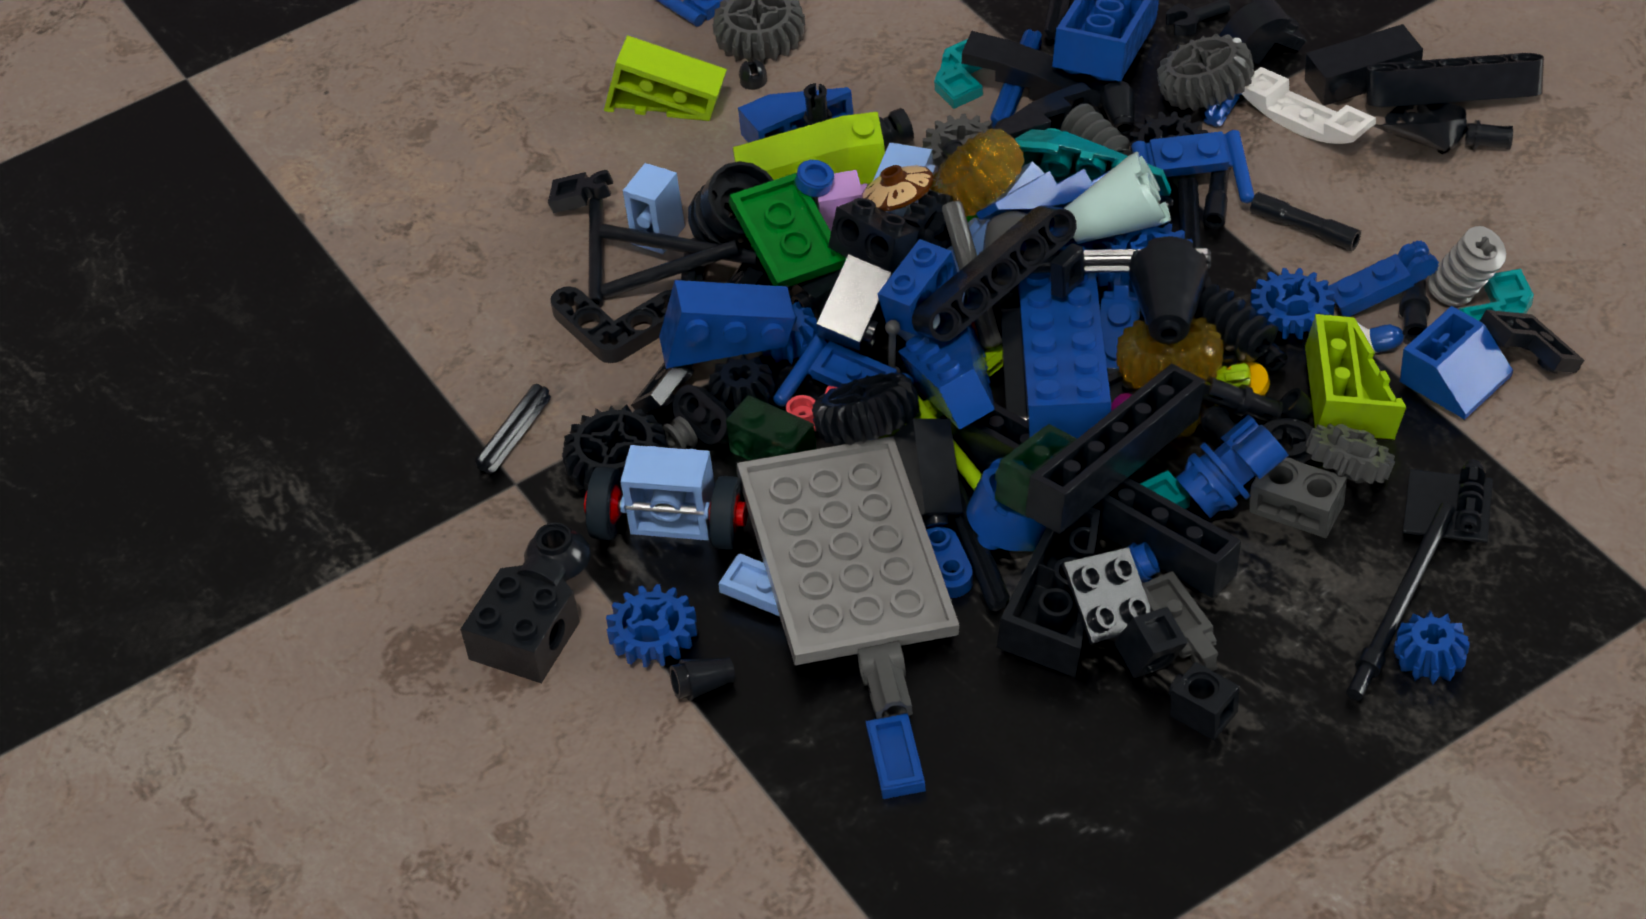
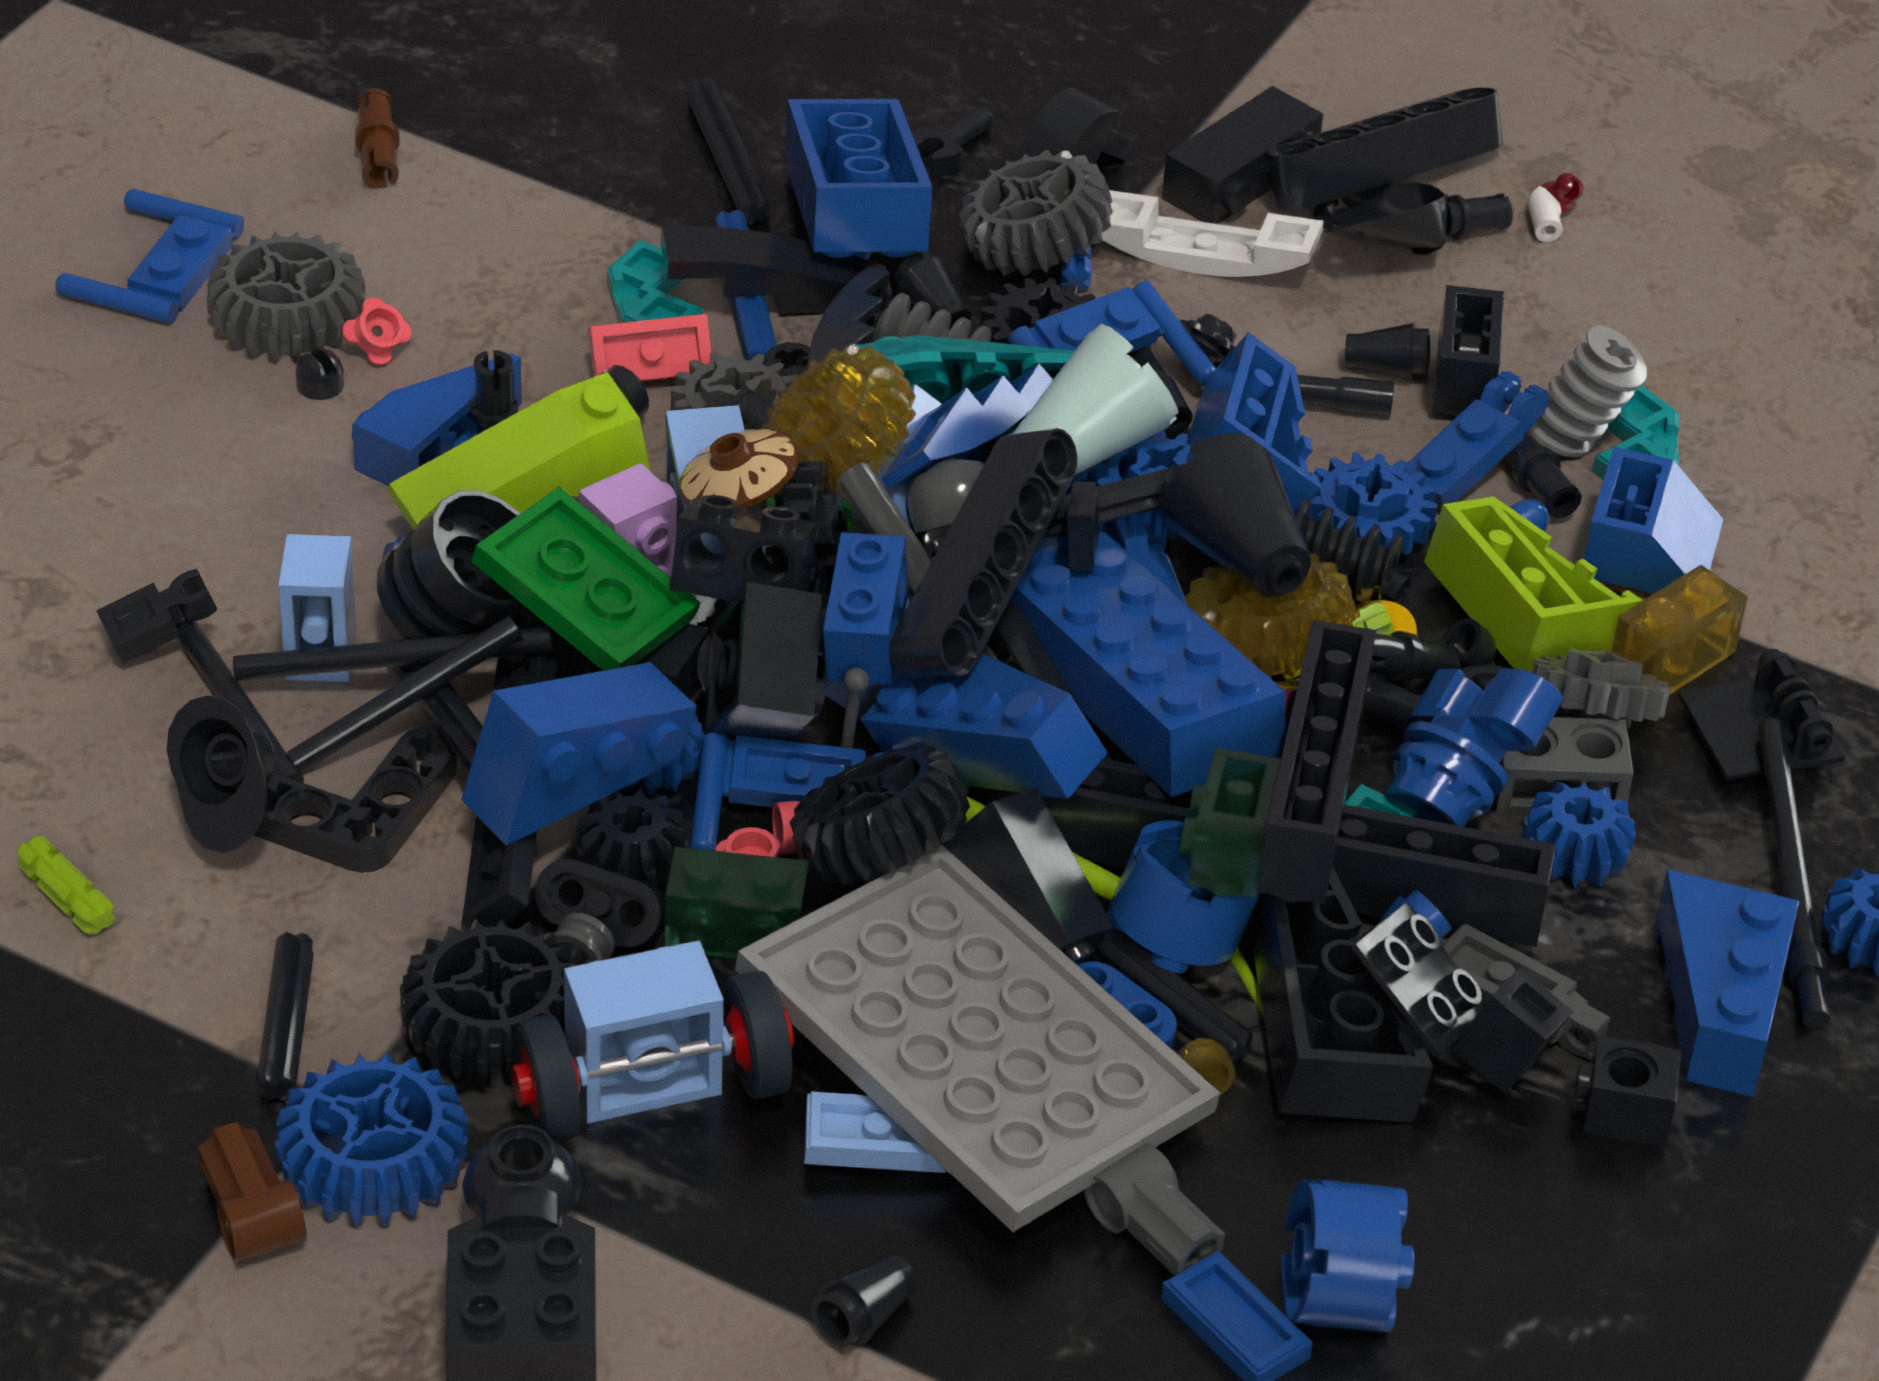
camera: 35 degrees left, 5 degrees down
(433, 524) = (252, 1204): none -> reddish brown piece
(451, 326) = (65, 885): none -> lime axle
(507, 506) = (376, 1154): none -> blue gear
(550, 287) = (220, 771): none -> black piece
(651, 625) = (735, 1247): blue gear -> none
(663, 81) = (191, 413): lime wedge -> none
(798, 47) = (382, 316): none -> coral plate
(814, 178) = (593, 488): blue tile -> none
(934, 102) = (651, 347): none -> coral plate
(962, 738) = (1345, 1255): none -> blue brick
(970, 608) = (1210, 1062): none -> clear yellow hinge
(1244, 238) = (1259, 396): none -> blue wedge
(1263, 176) = (1212, 336): none -> black plant
(1280, 538) = (1588, 831): none -> blue gear
(1309, 652) = (1725, 974): none -> blue wedge
(1375, 210) = (1391, 351): none -> black cone
(1414, 217) = (1467, 347): none -> black brick
(1428, 433) = (1682, 627): none -> clear yellow brick
(1532, 335) = (1713, 466): black plate -> none
(1546, 139) = (1551, 202): none -> arm

